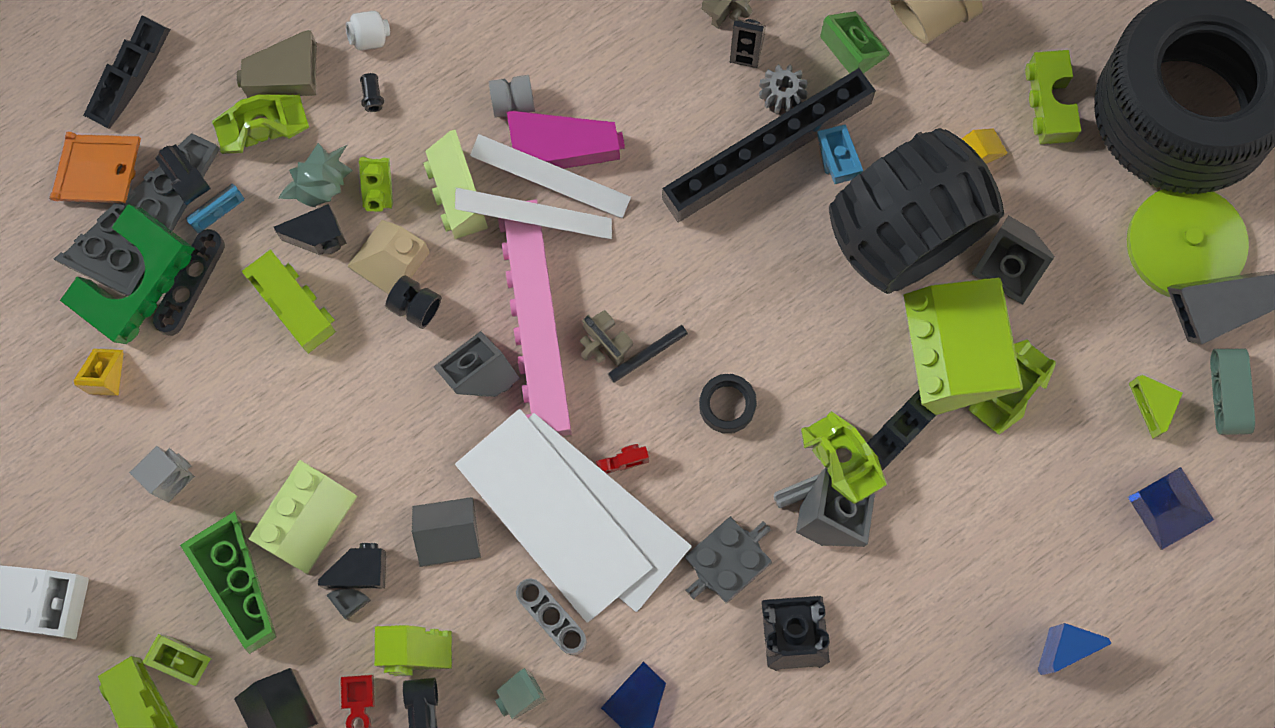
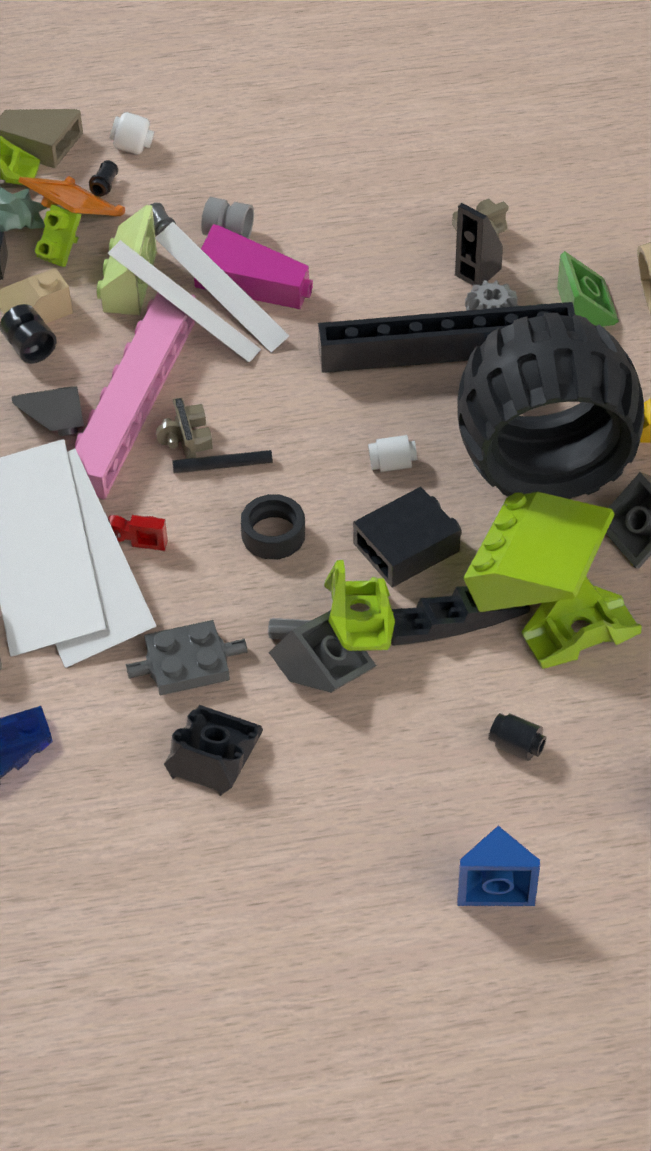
camera: 25 degrees right, 25 degrees down
(370, 132) = (71, 196): none -> orange container
(450, 118) = (161, 219): none -> dark grey pin
(783, 284) = (392, 453): none -> white brick
(838, 362) = (407, 536): none -> black brick
(1016, 512) = (517, 736): none -> black brick

